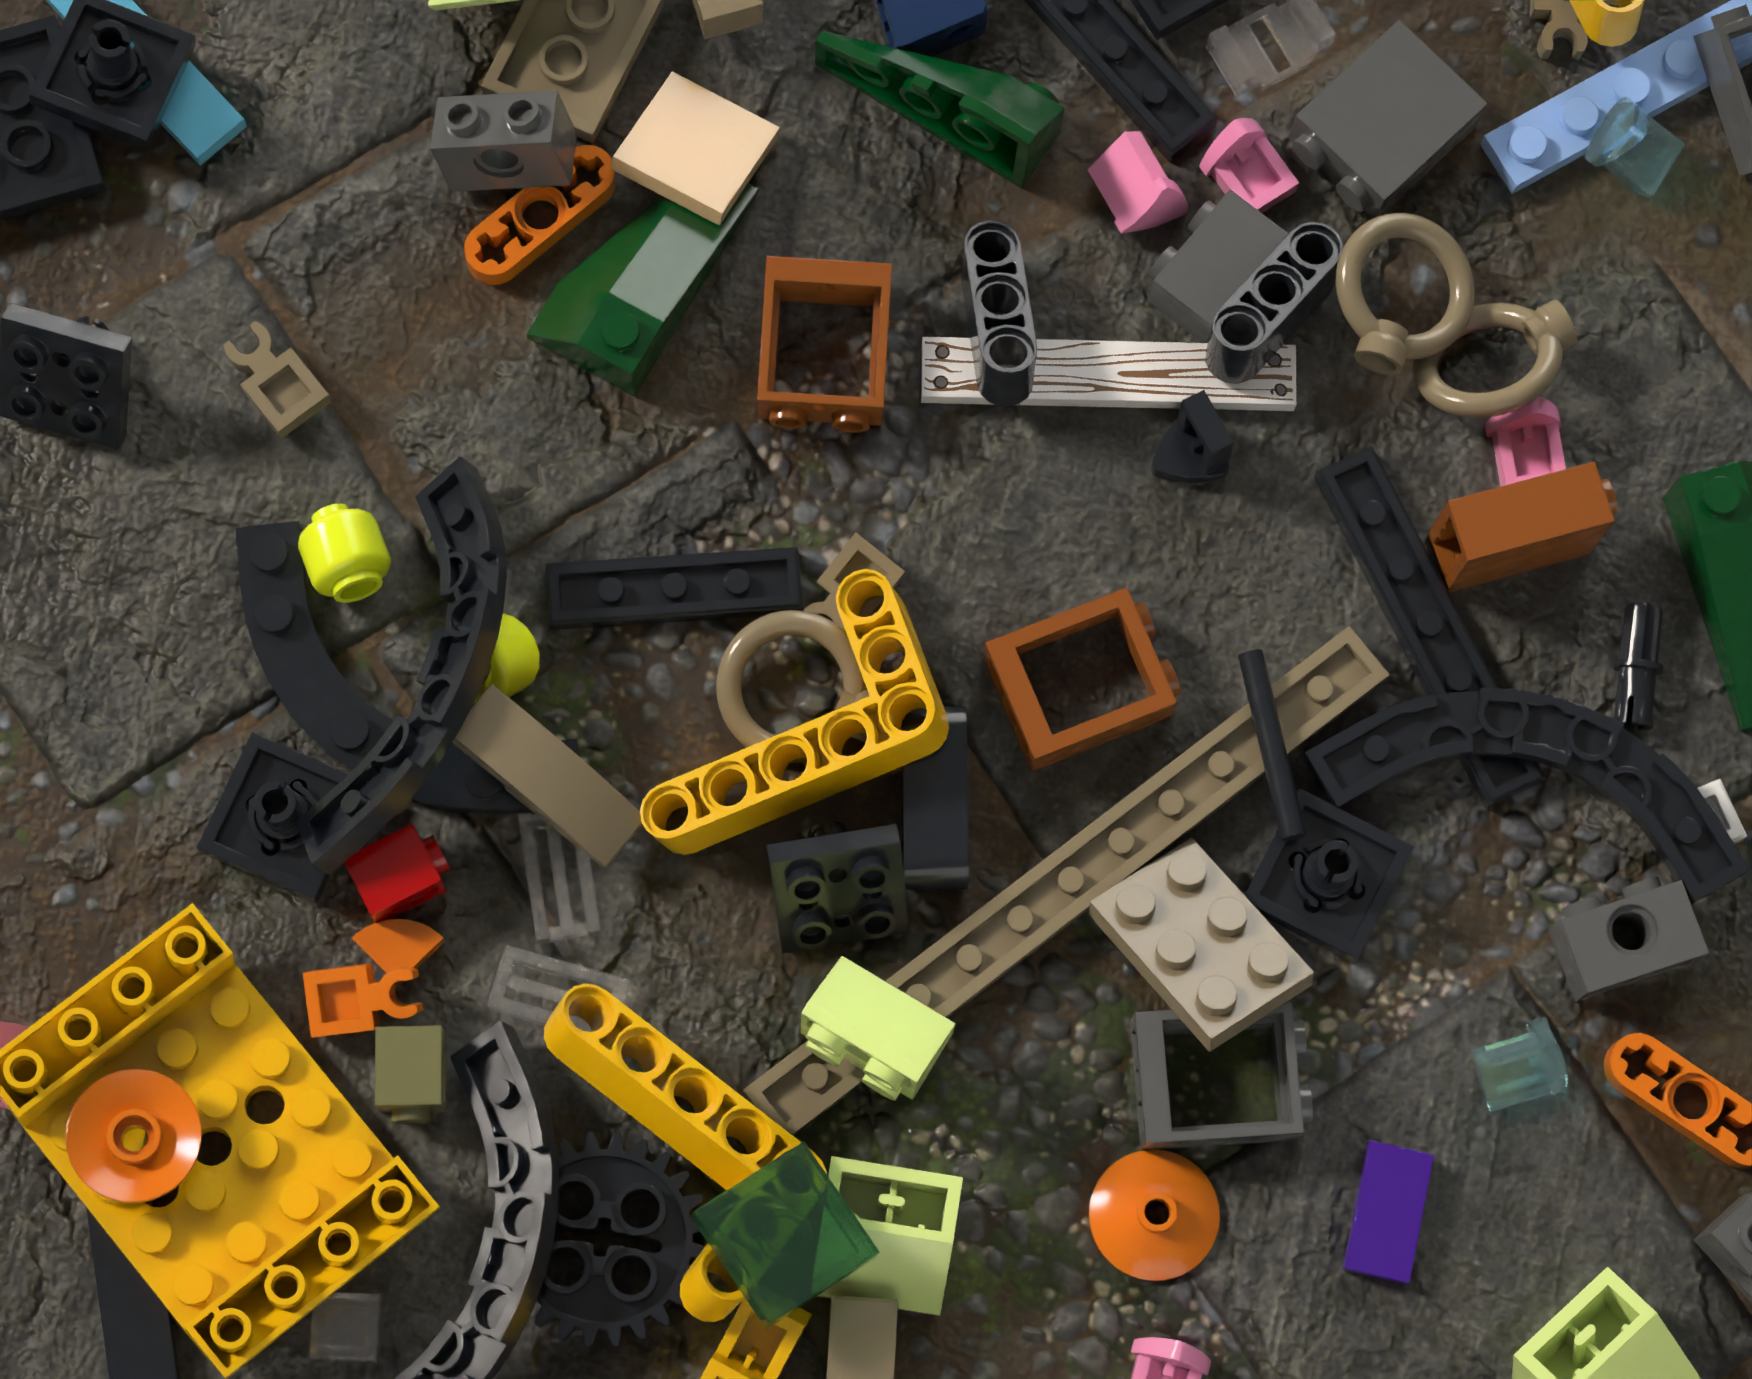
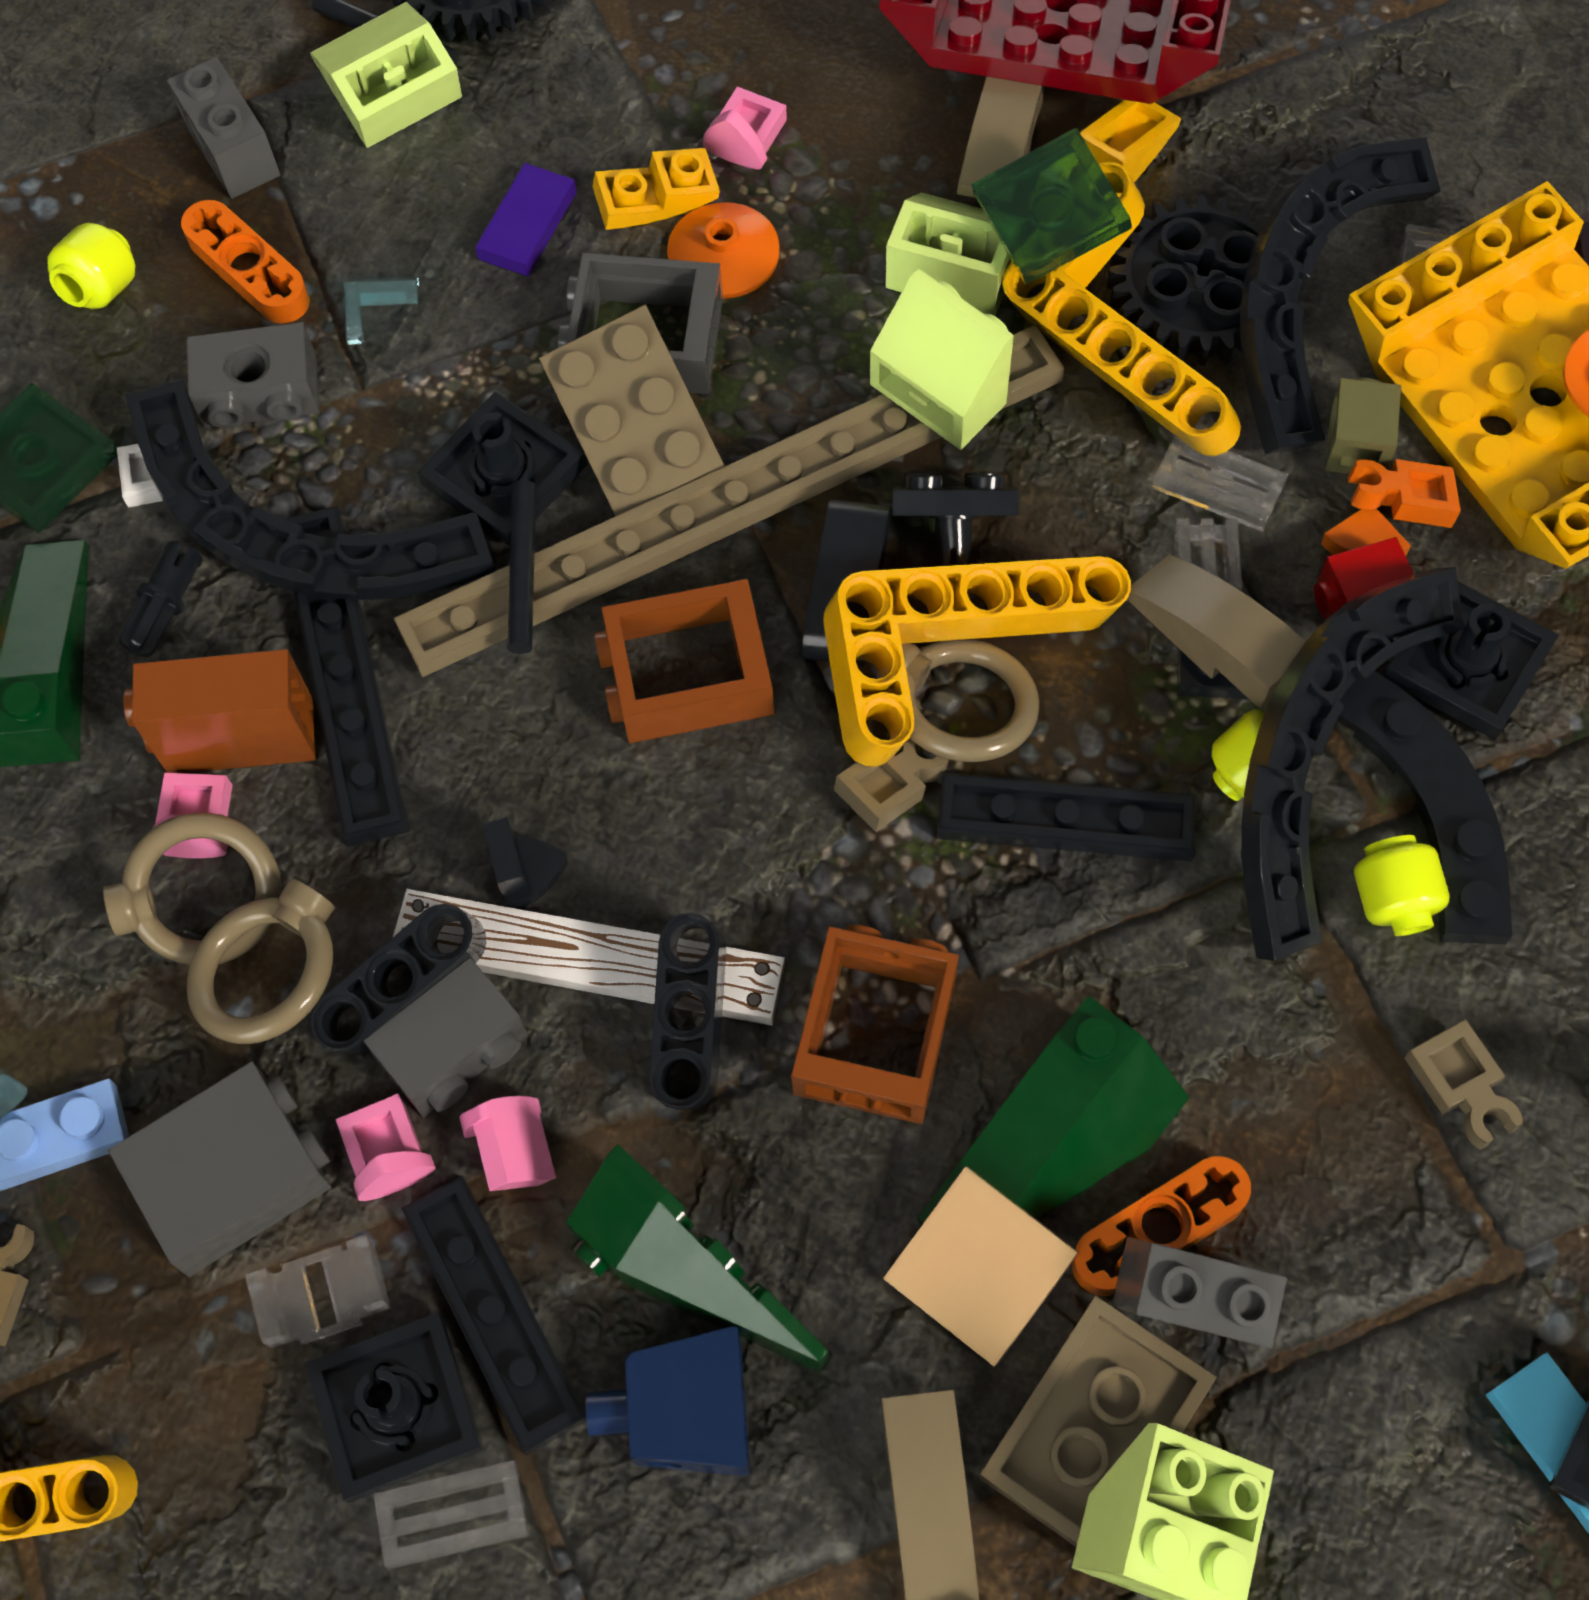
camera: 160 degrees left, 10 degrees down
(1249, 1278) = (668, 187): none -> yellow slope

